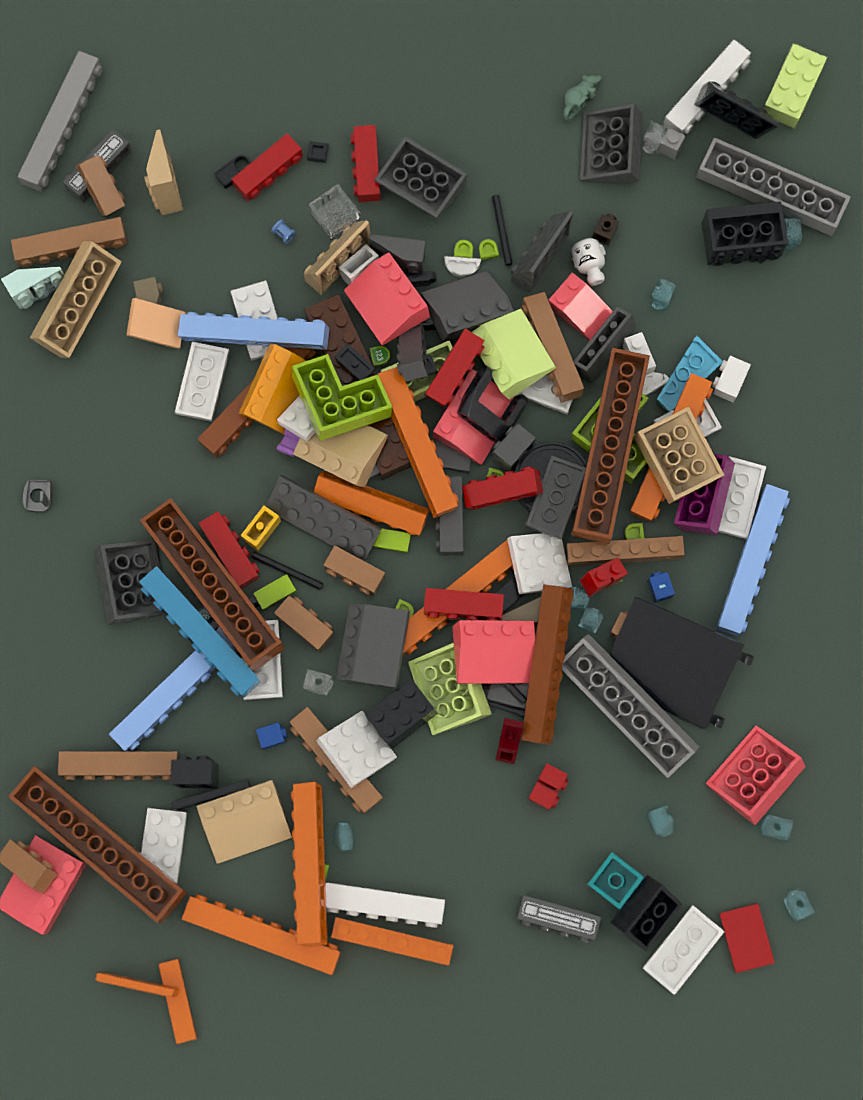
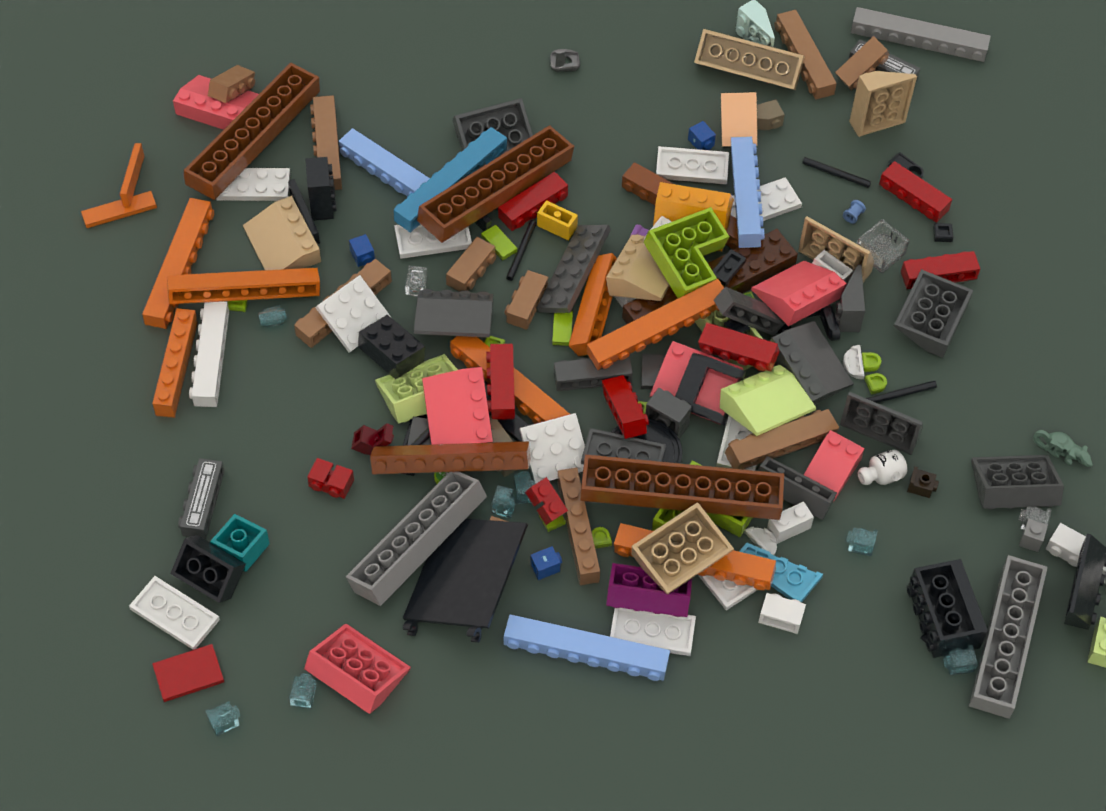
camera: 80 degrees right, 20 degrees down
(167, 365) = (701, 136): none -> blue brick
(227, 241) = (839, 173): none -> black piece
(661, 821) = (303, 581): clear light blue brick -> none

